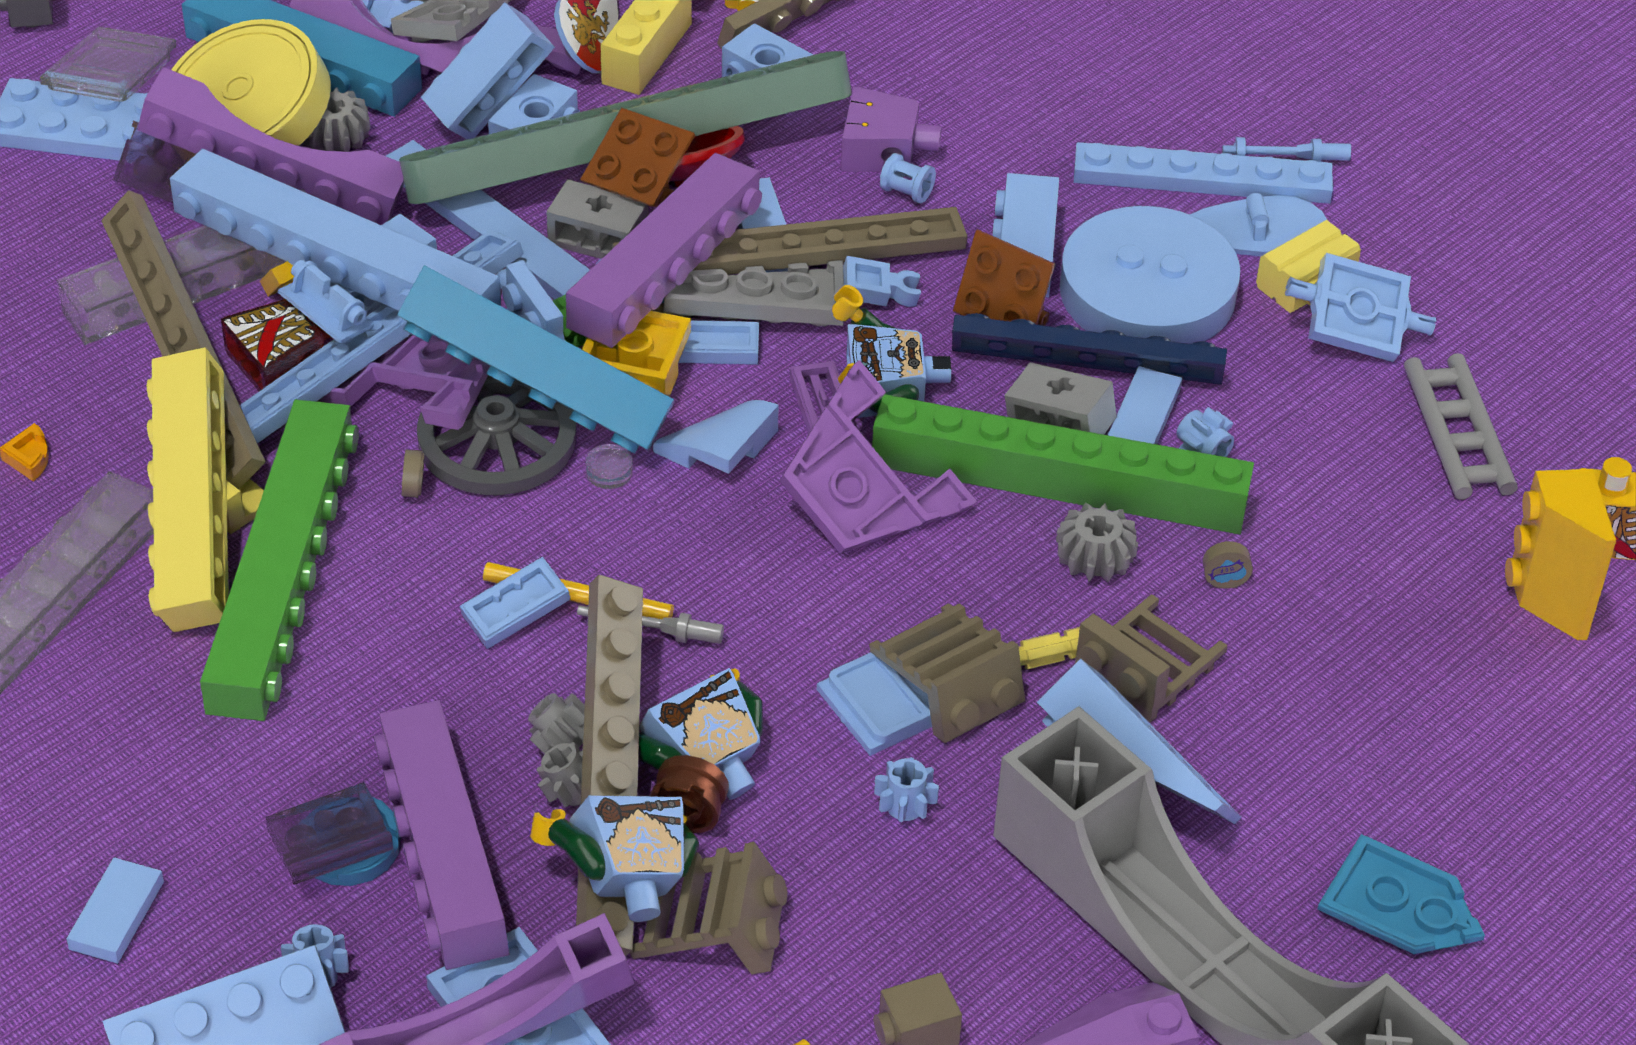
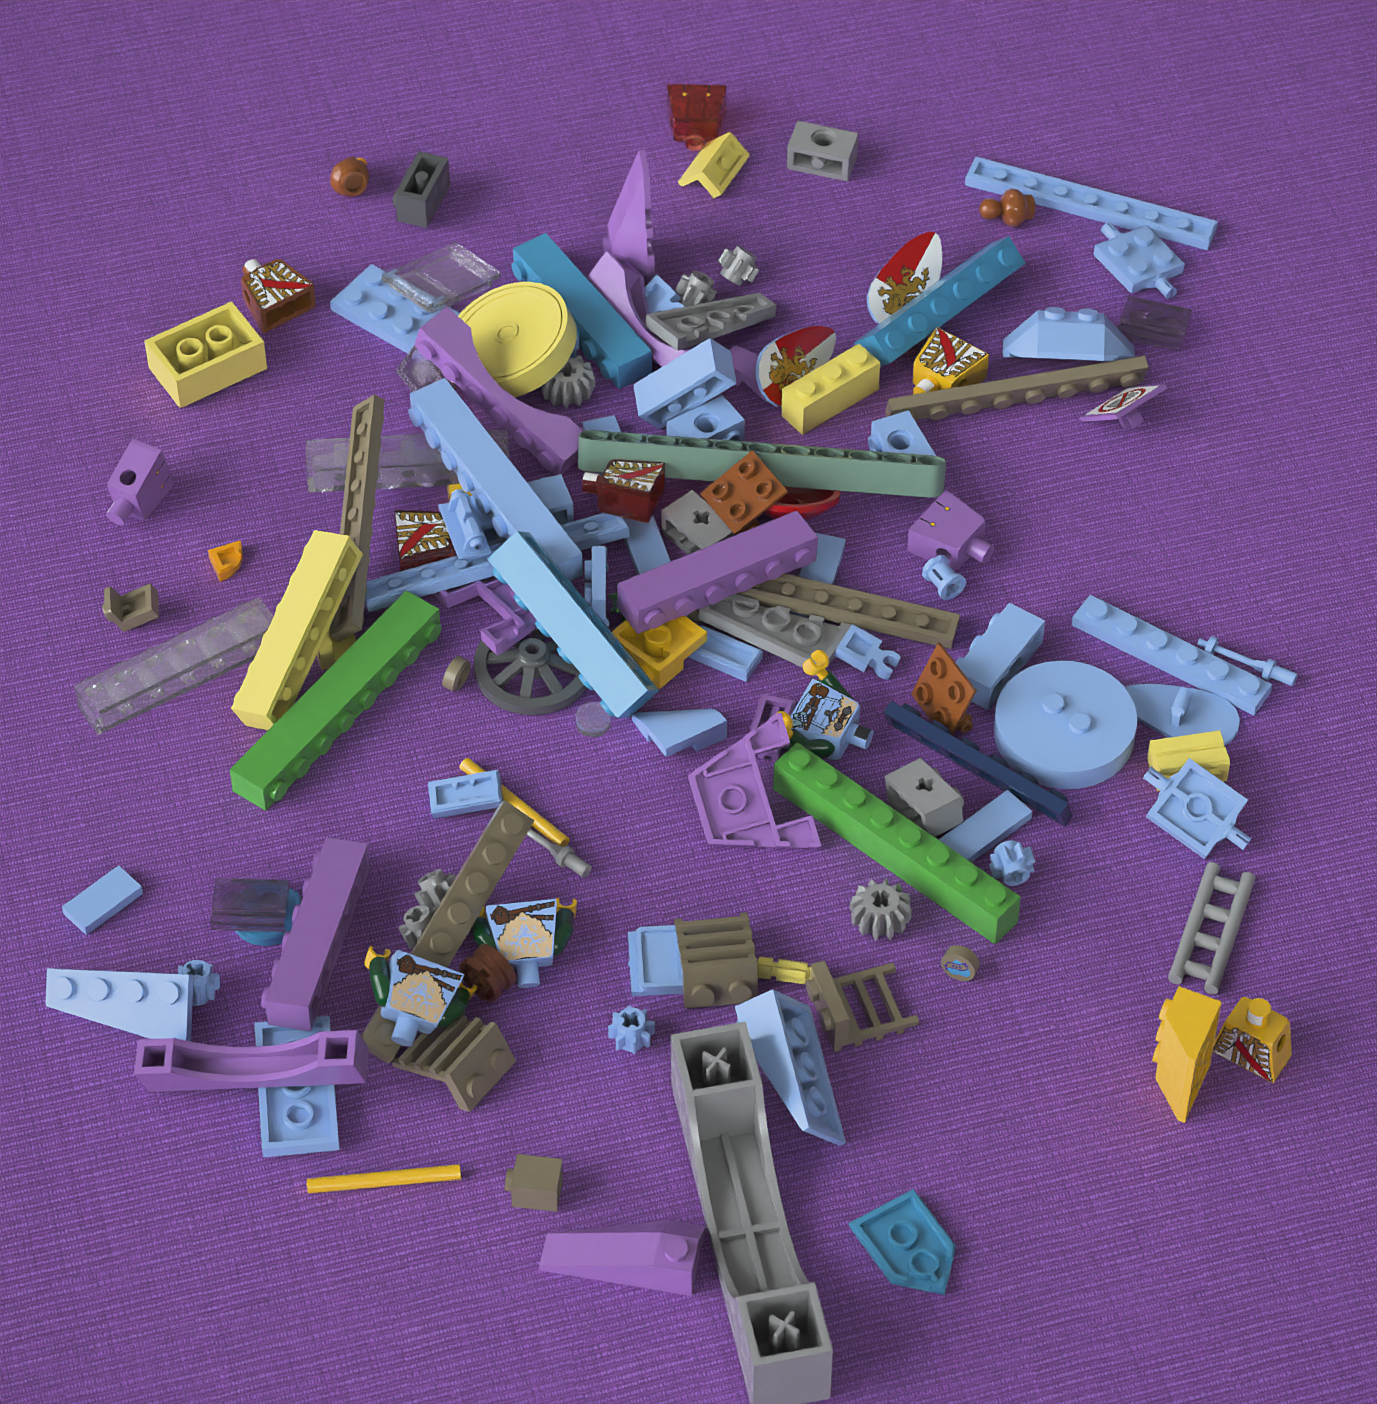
camera: 30 degrees right, 5 degrees up
(492, 201) = (628, 488): none -> clear red torso

